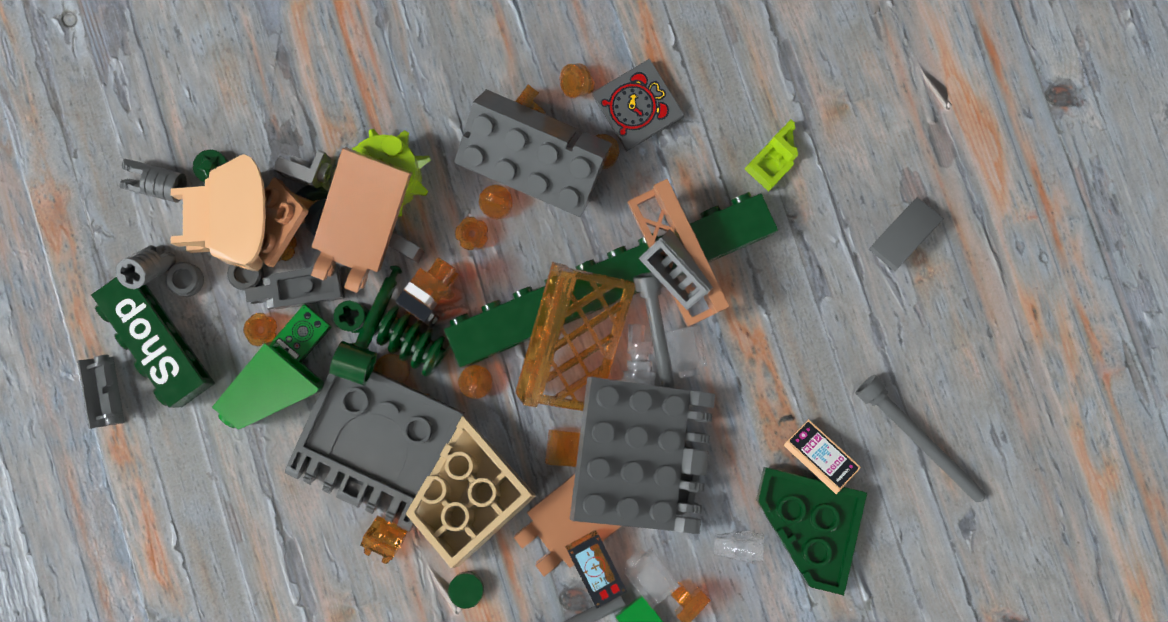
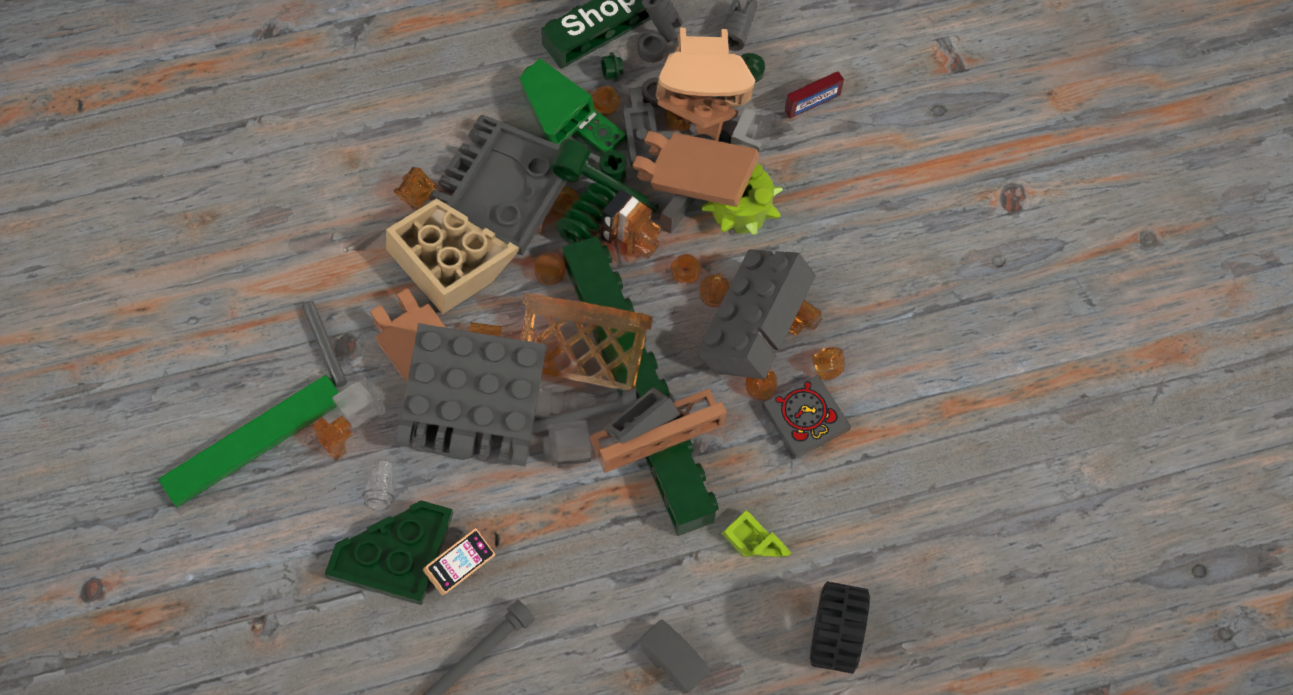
camera: 90 degrees right, 20 degrees down
(214, 324) = (611, 67): none -> dark green plate
(247, 94) = (814, 94): none -> dark red tile
(466, 590) = (364, 254): dark green tile -> none
(596, 569) = (372, 357): tile -> none
(881, 66) = (840, 627): none -> black tyre

